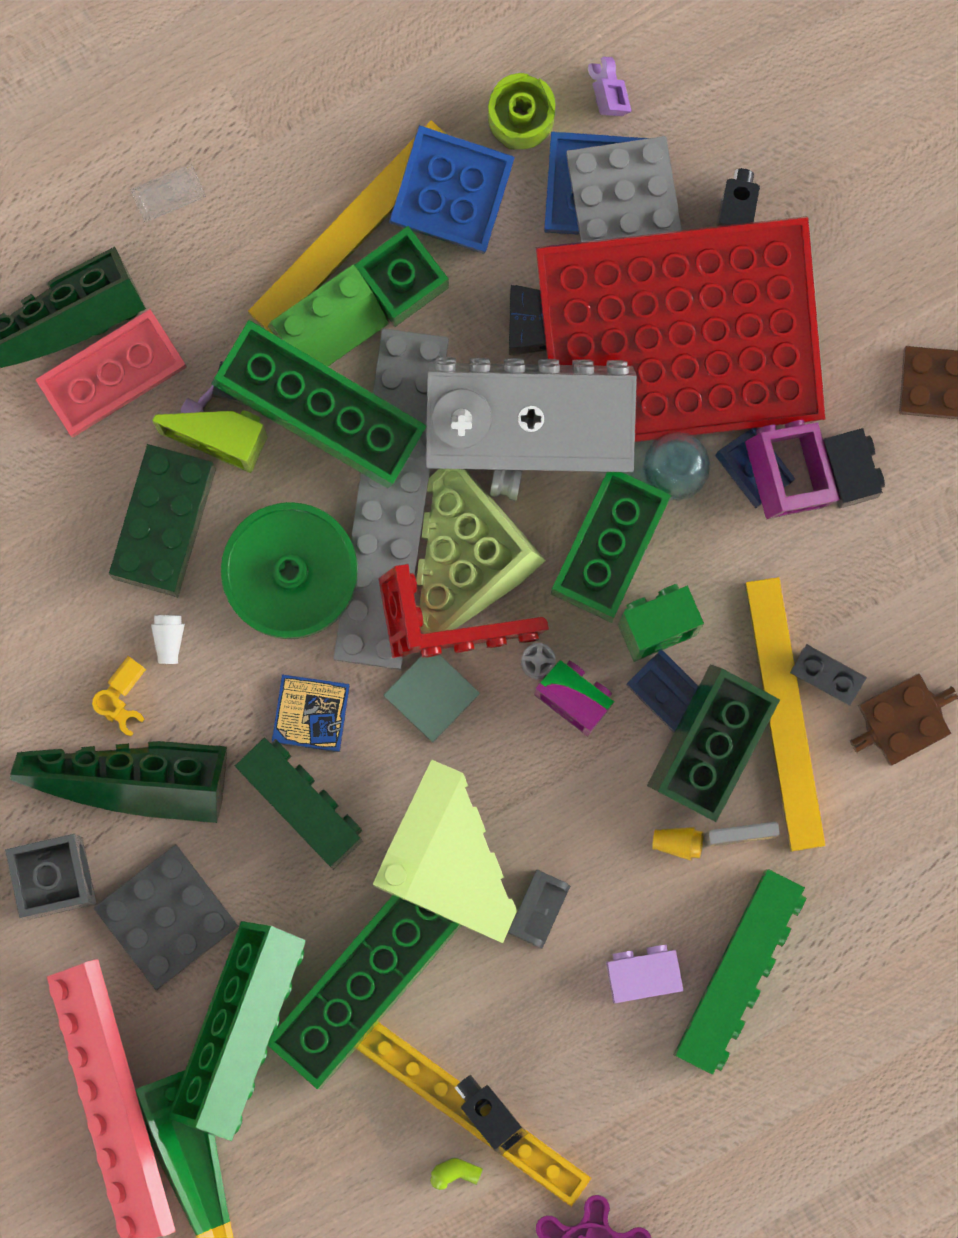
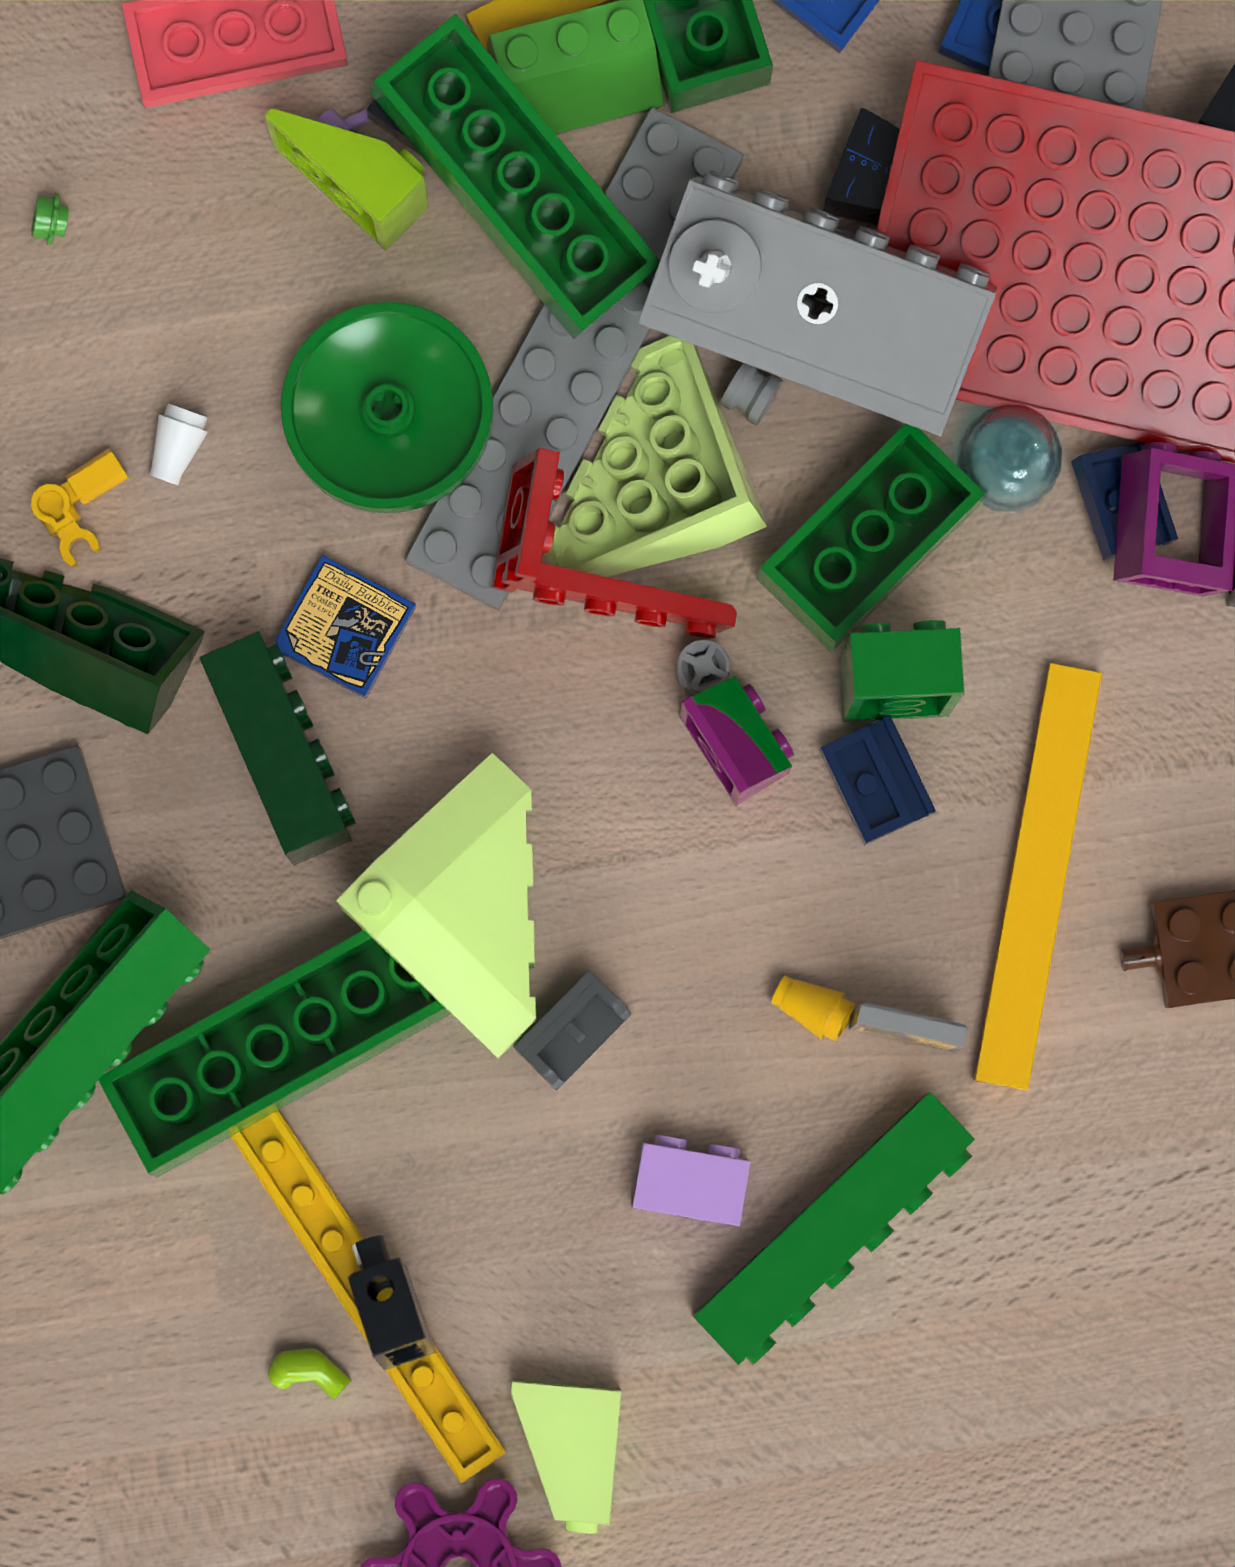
camera: 20 degrees right, 0 degrees up
(38, 527) = (49, 218): none -> bright green plate
(162, 520) = (230, 270): dark green brick -> none
(431, 695) = (529, 663): sand green tile -> none
(631, 1159) = (573, 1447): none -> yellowish green slope
(713, 742) = (916, 877): dark green brick -> none
(828, 674) = (1123, 840): black hinge -> none

